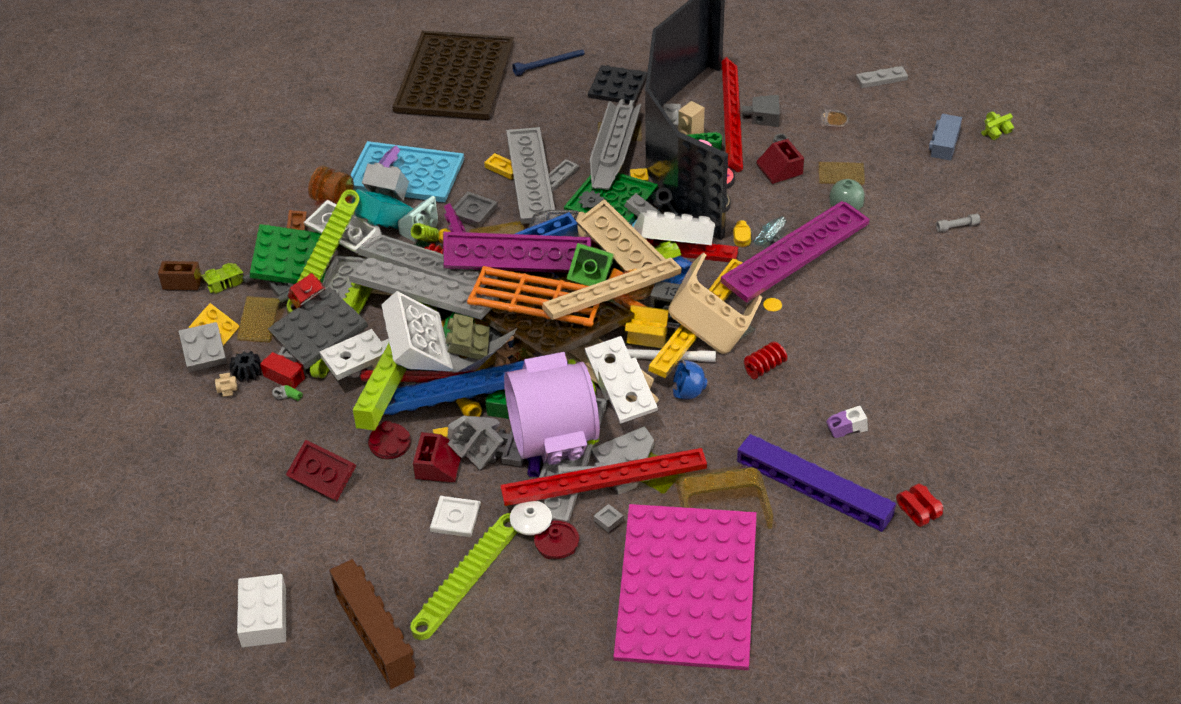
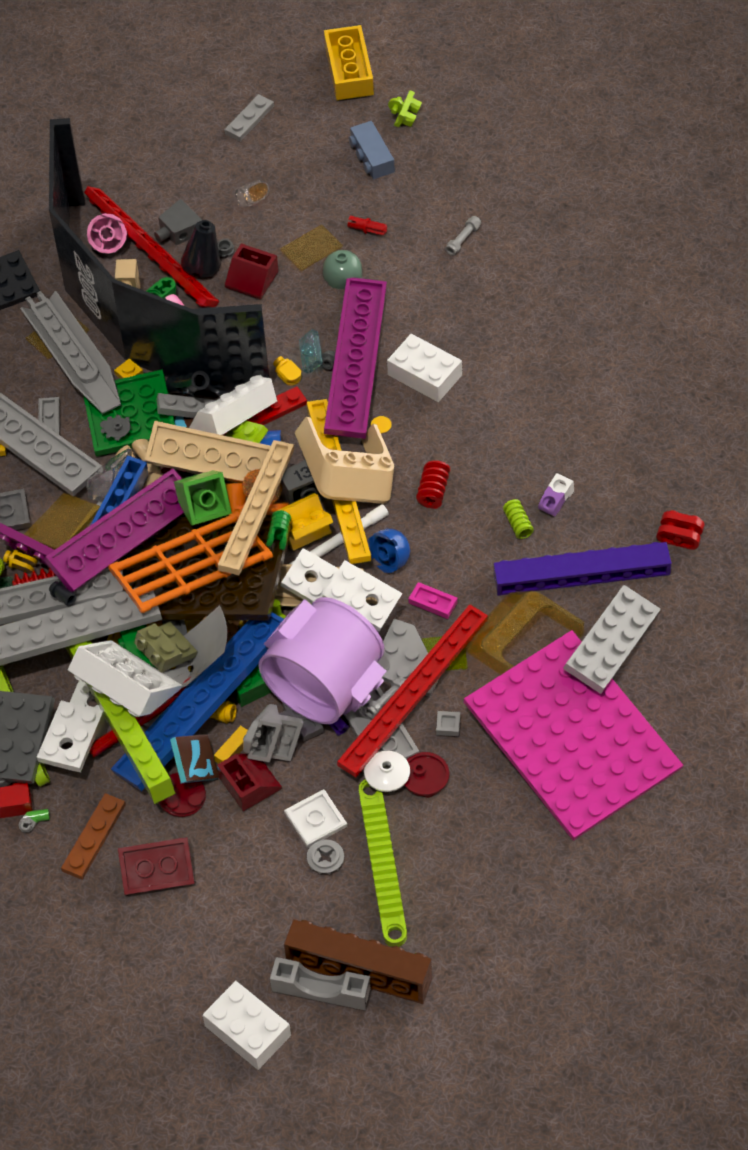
camera: 40 degrees left, 10 degrees up
(310, 428) = (93, 836): none -> dark orange plate
(343, 633) = (296, 980): none -> light grey arch
(413, 418) = (194, 758): none -> tile
(425, 541) = (325, 847): none -> light grey gear
(437, 264) = (58, 590): none -> black pin
(613, 312) = (279, 528): none -> green hinge
(685, 433) = (433, 600): none -> dark pink plate
(708, 88) = (106, 233): none -> bright pink cylinder
(758, 130) = (202, 251): none -> black cone
(781, 539) = (611, 639): none -> light grey plate
(803, 420) = (518, 519): none -> lime piece
(838, 285) = (424, 367): none -> white brick
(893, 179) = (367, 225): none -> red axle
(984, 77) = (348, 62): none -> yellow brick

